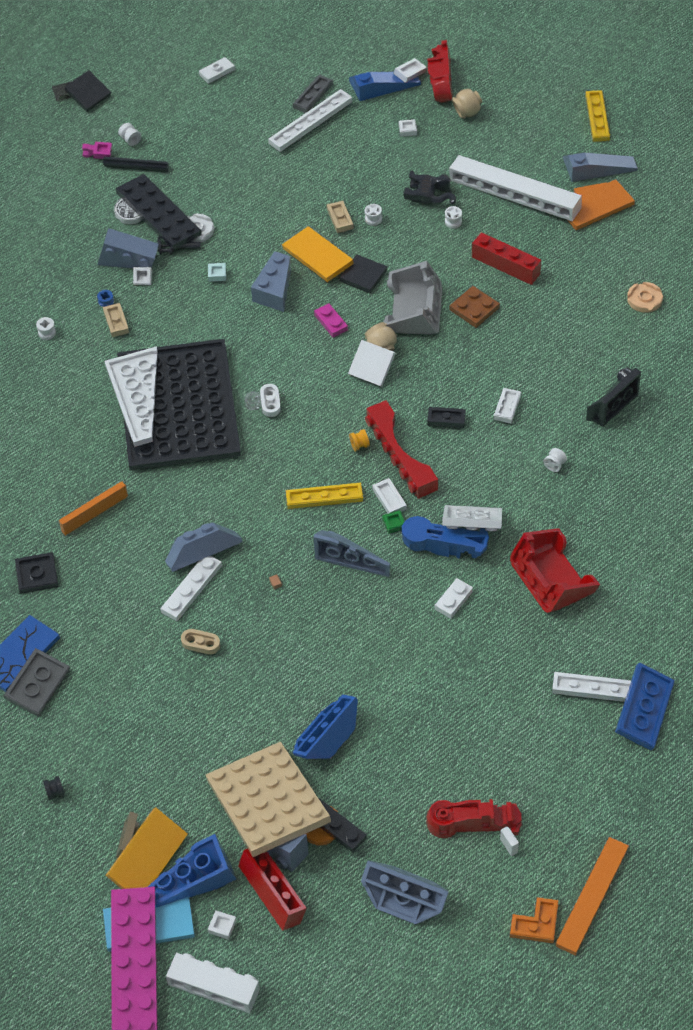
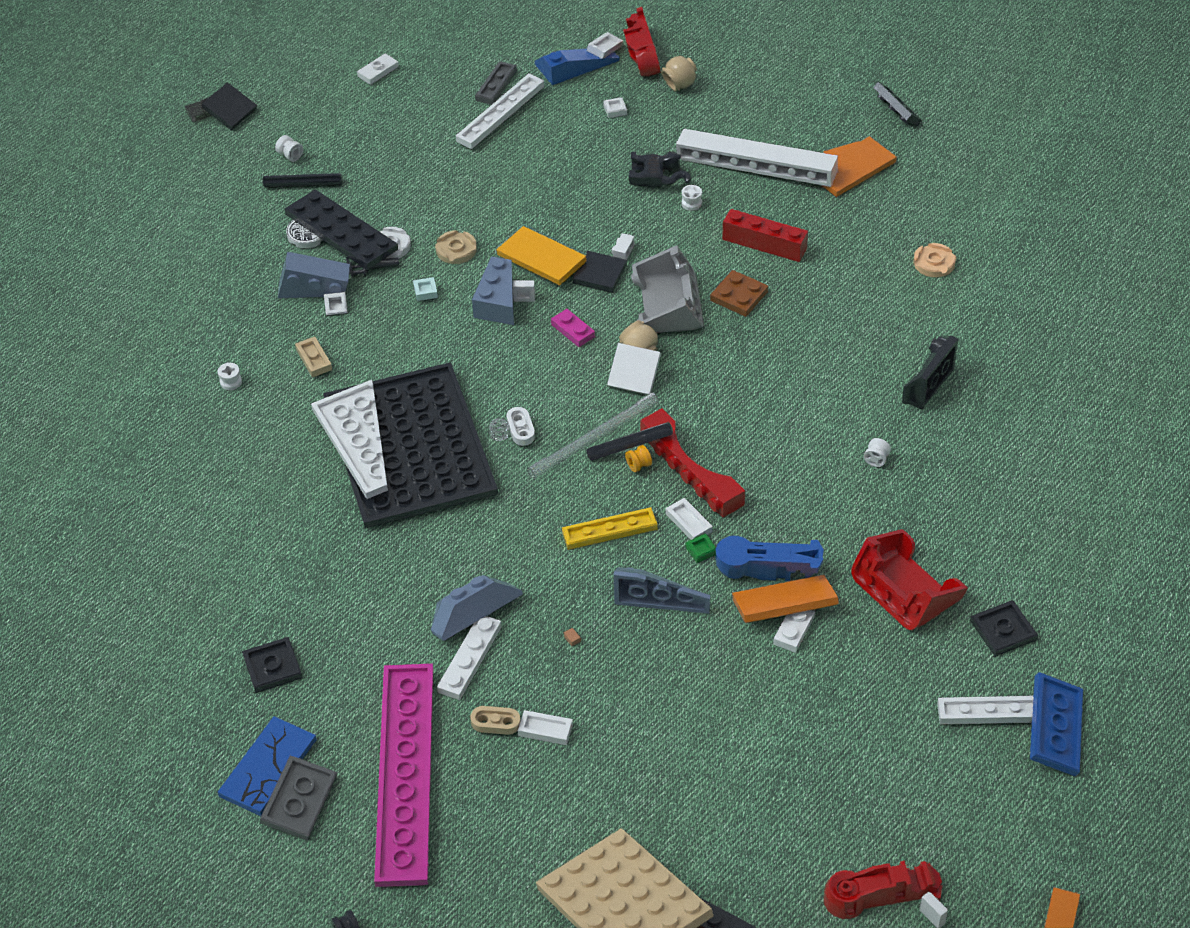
camera: 10 degrees left, 5 degrees down
(93, 508) = (329, 578): orange tile -> none
(99, 150) = (255, 169): dark pink plate -> none
(105, 294) = (295, 329): blue bush -> none
(121, 675) = (404, 776): none -> dark pink plate
(238, 652) = (545, 727): none -> white tile
(250, 238) = (456, 247): none -> tan tile
(284, 435) = (547, 463): none -> clear piece
(296, 283) = (523, 291): none -> white plate
(328, 730) = (679, 804): blue wedge -> none
(340, 216) = (558, 211): tan plate -> none
(352, 425) = (629, 441): none -> black axle
(373, 214) = (597, 205): white wheel -> none
(387, 254) = (623, 246): none -> white piece
(446, 417) = (736, 420): black plate -> none
(450, 573) = (785, 598): none -> orange tile
(472, 517) = (798, 529): white plate -> none
(507, 405) = (805, 398): white plate -> none
(593, 165) = (840, 124): sand blue wedge -> none
(597, 116) = (830, 72): yellow tile -> none
(623, 621) = (1003, 628): none -> black tile
(646, 152) = (896, 104): none -> plate

